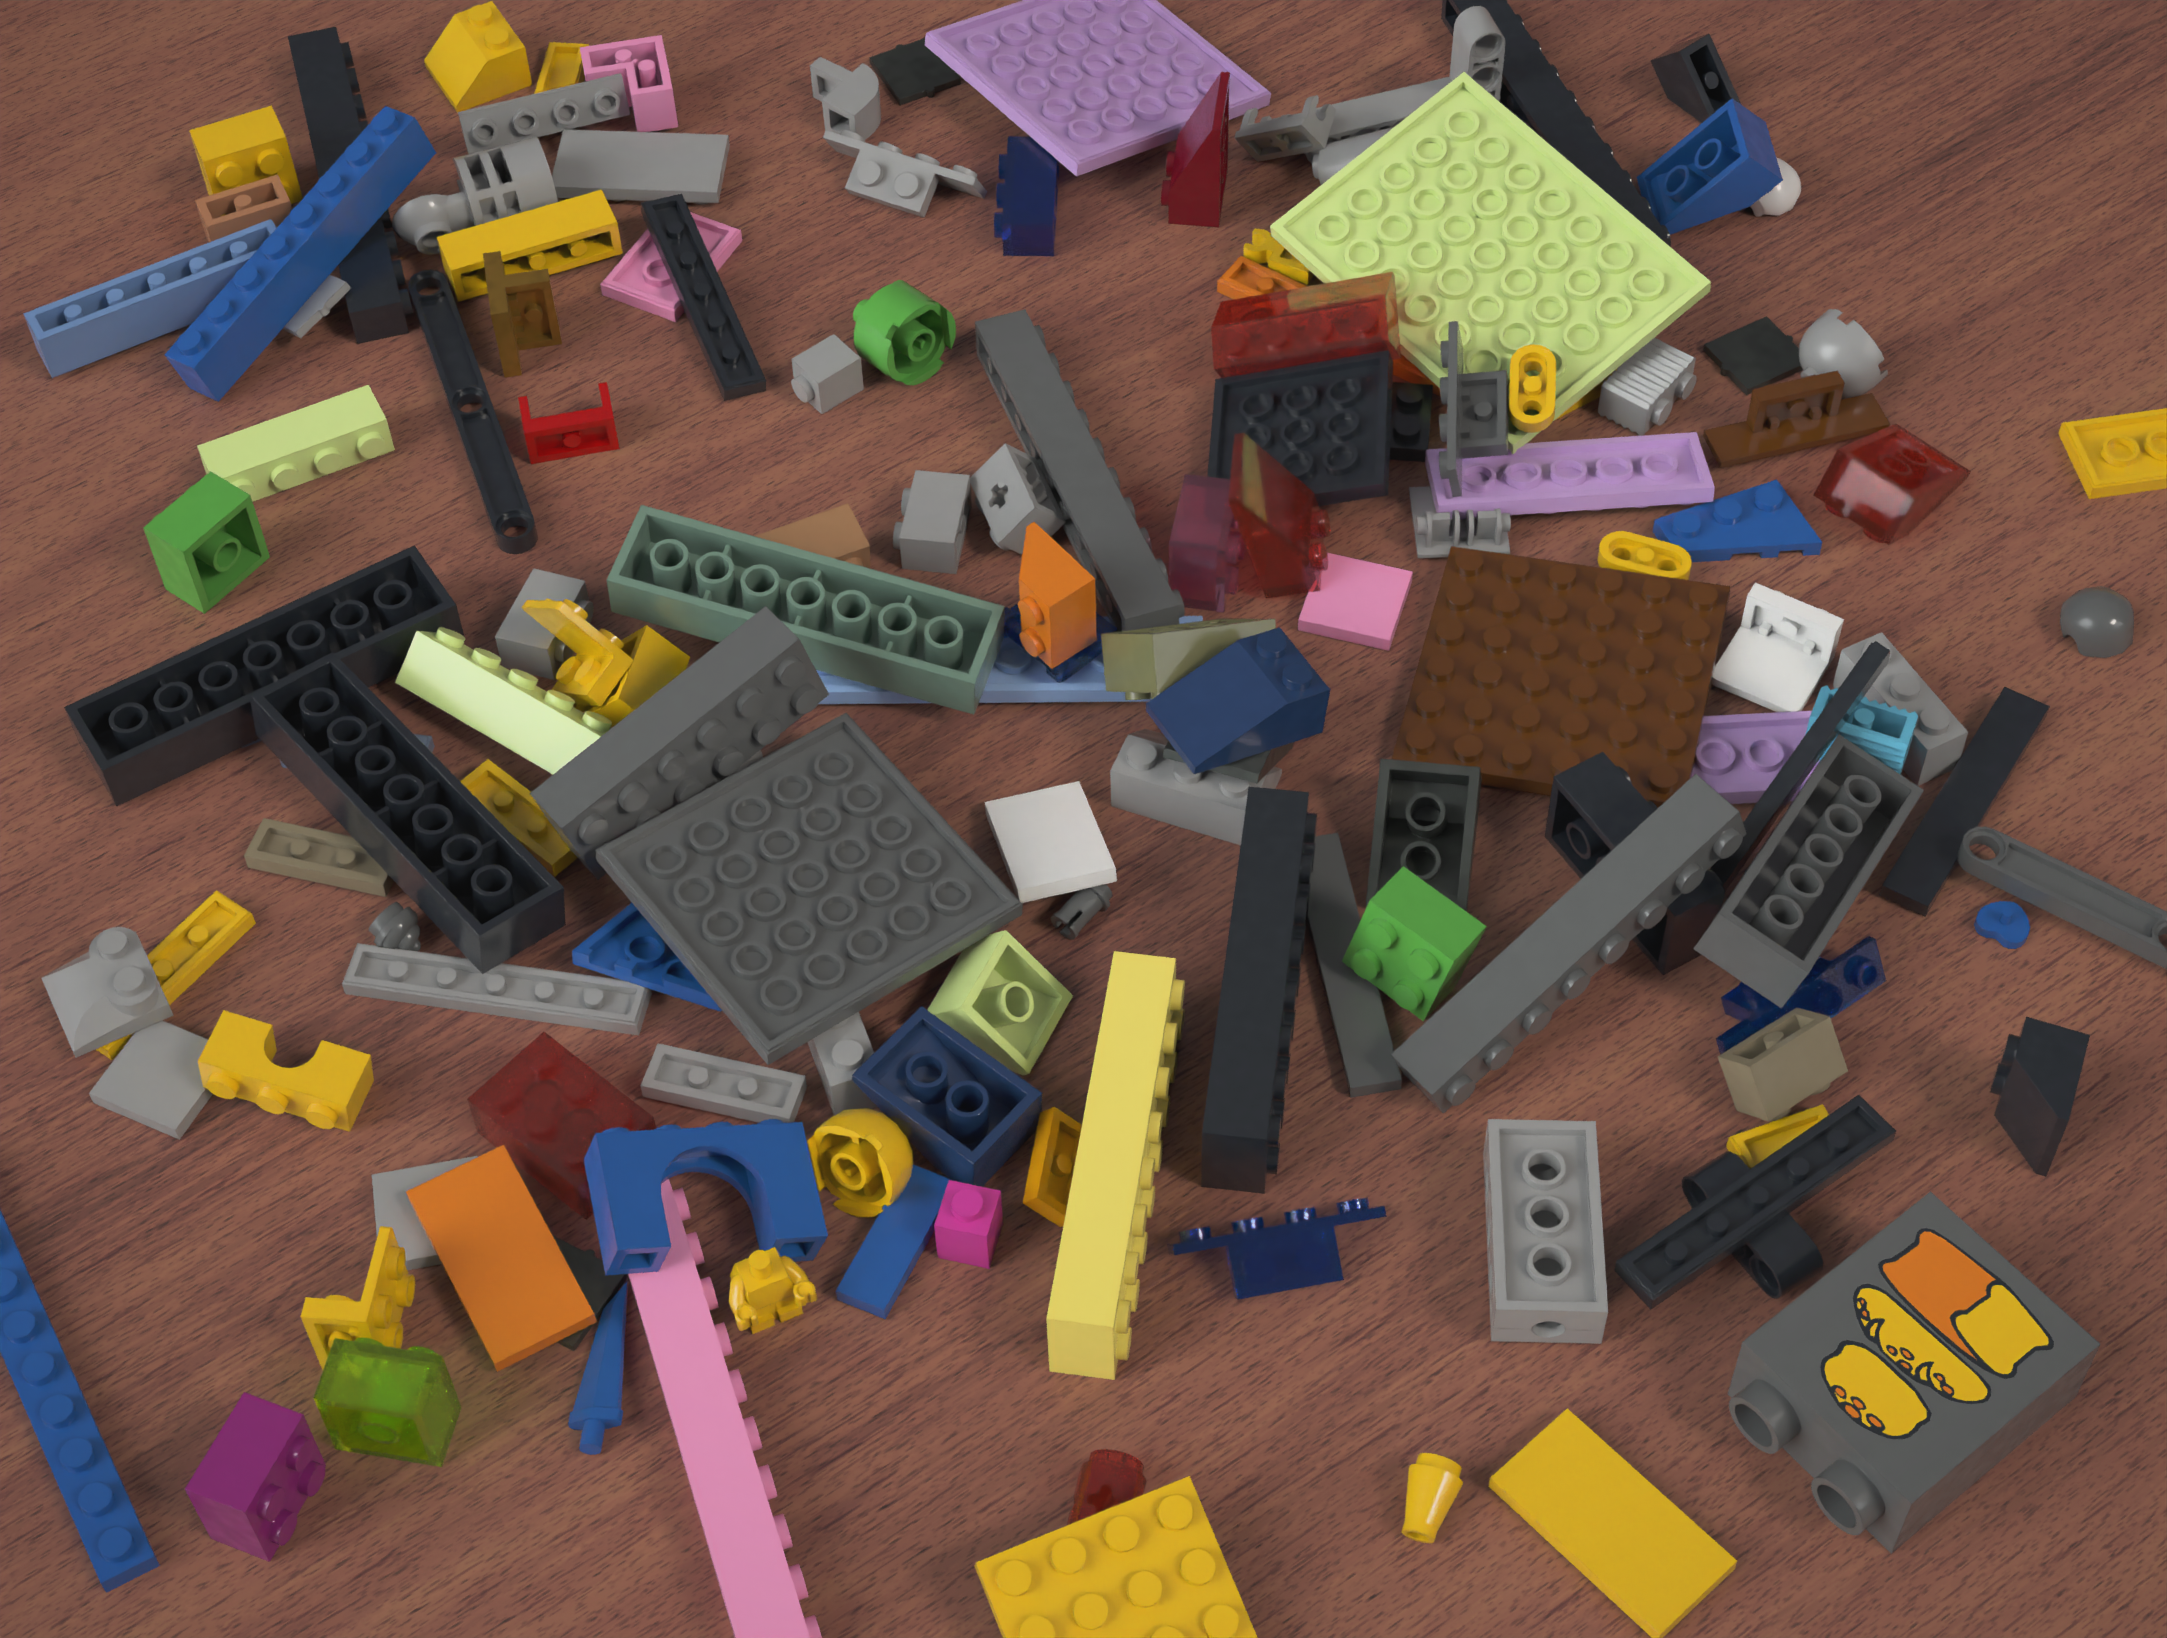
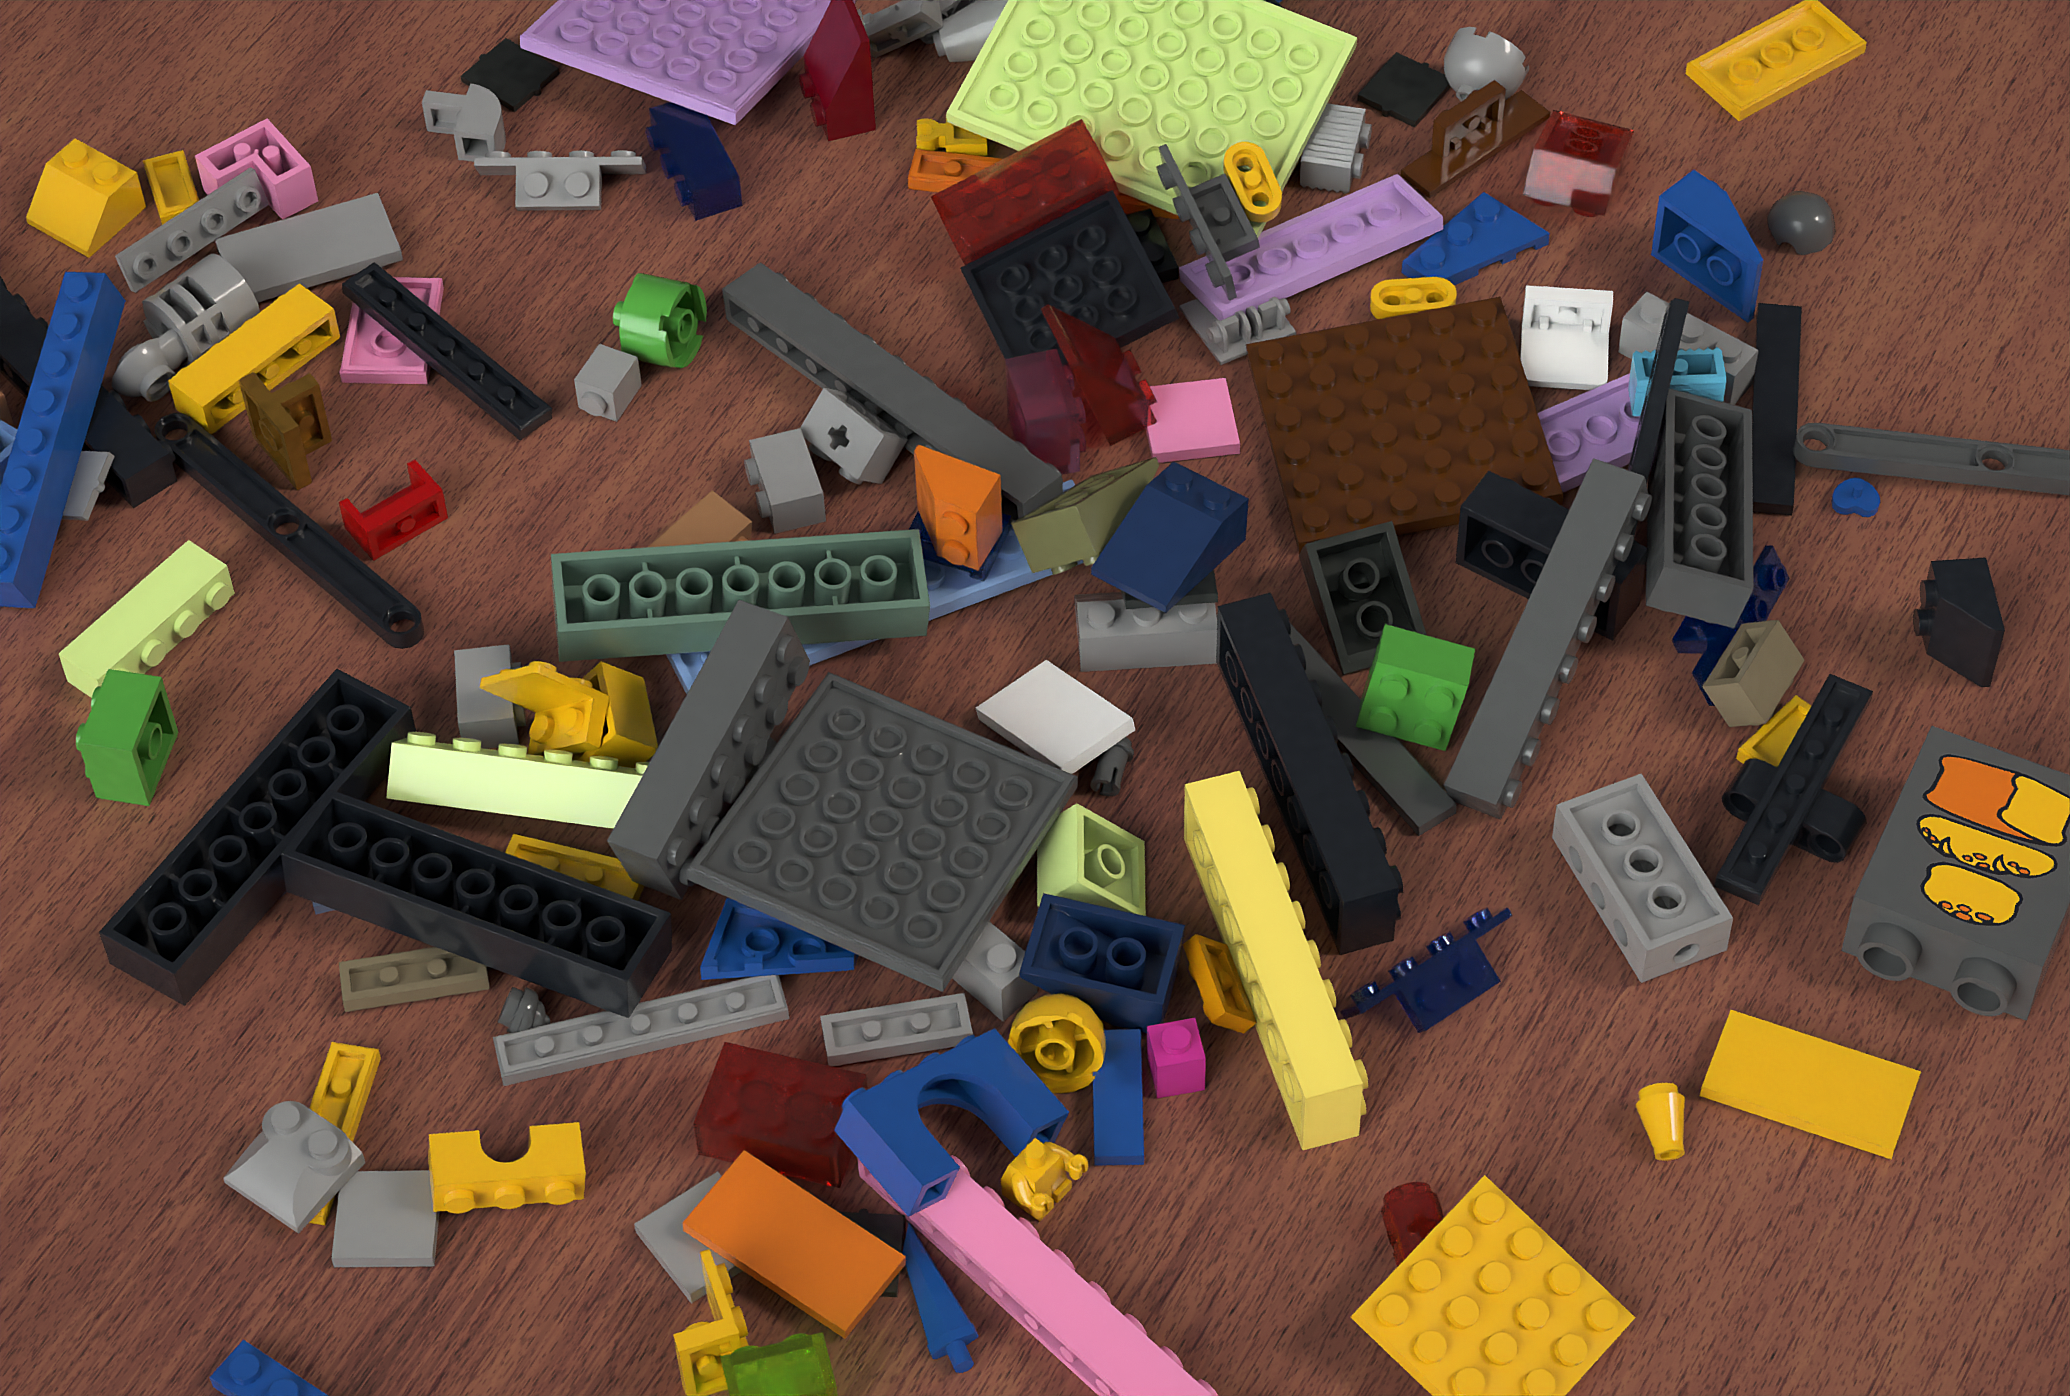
camera: 25 degrees left, 0 degrees up
(1974, 603) = (1708, 243): none -> blue slope

